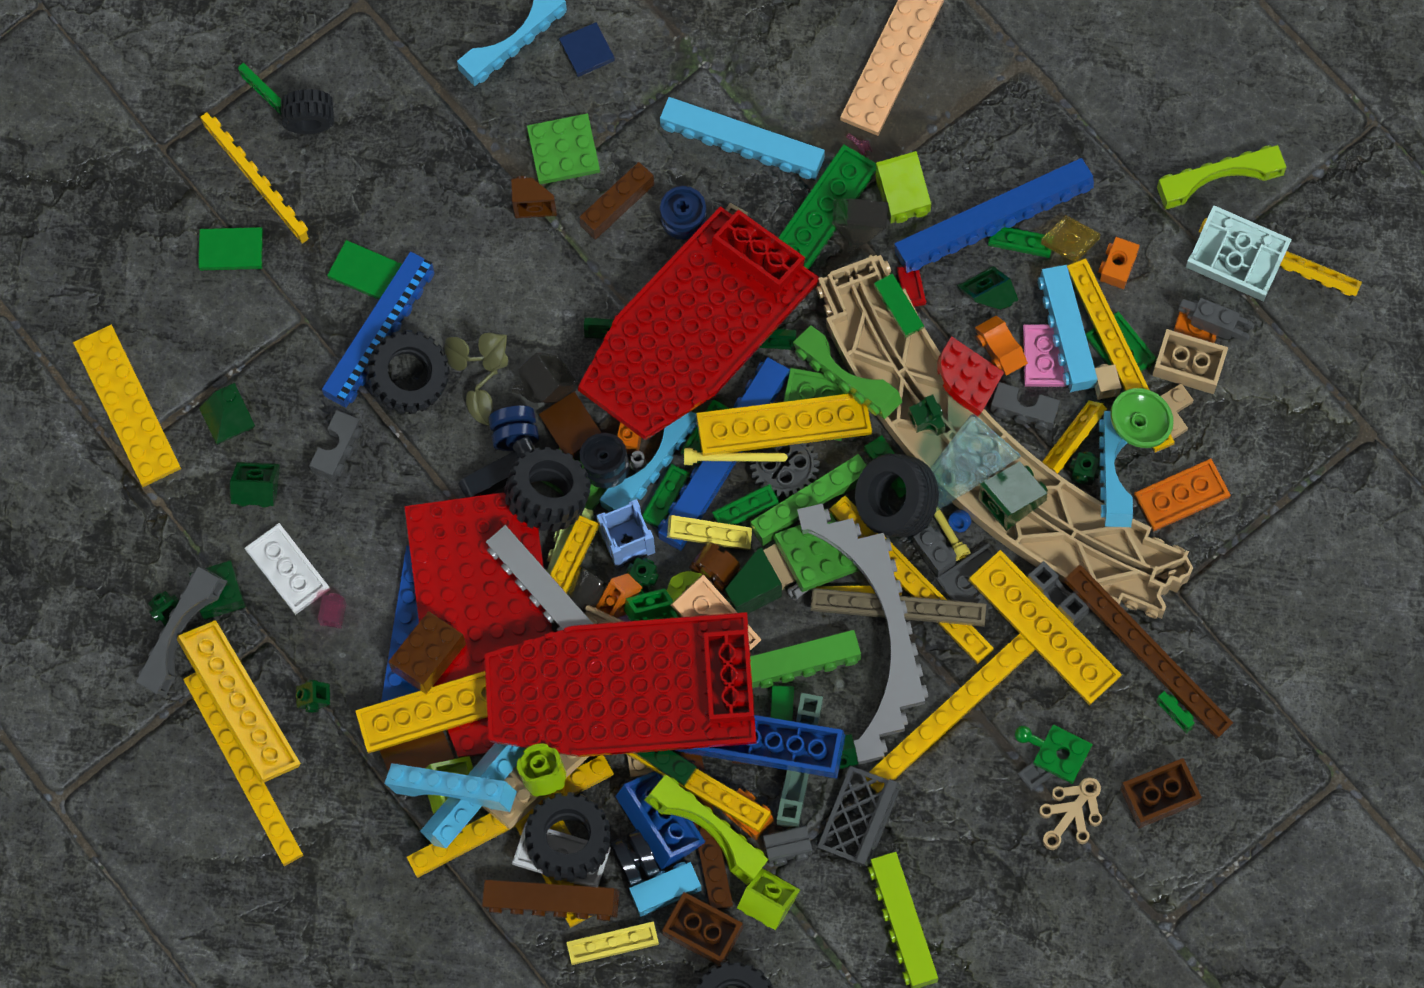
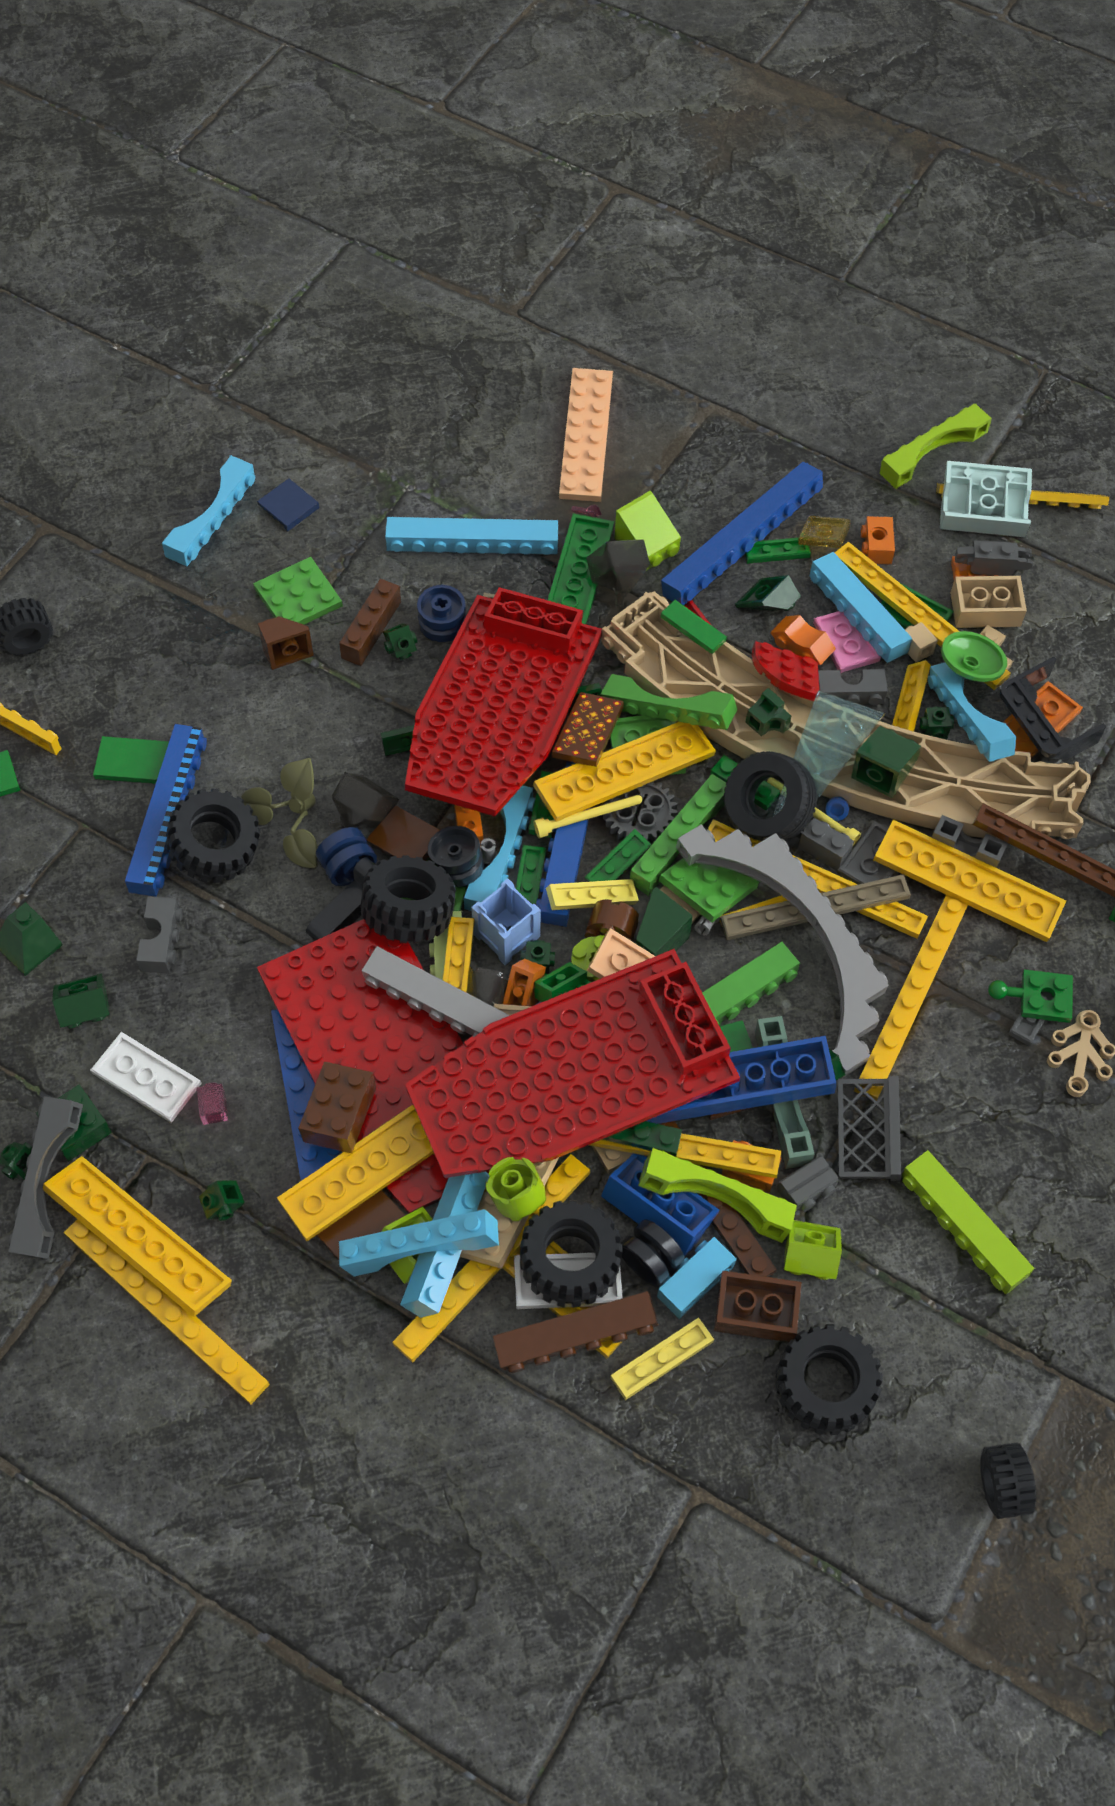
camera: 25 degrees left, 10 degrees down
(635, 229) = (400, 641): none -> dark green brick
(765, 376) = (588, 729): none -> reddish brown tile
(1163, 472) = (1020, 699): none -> black windscreen

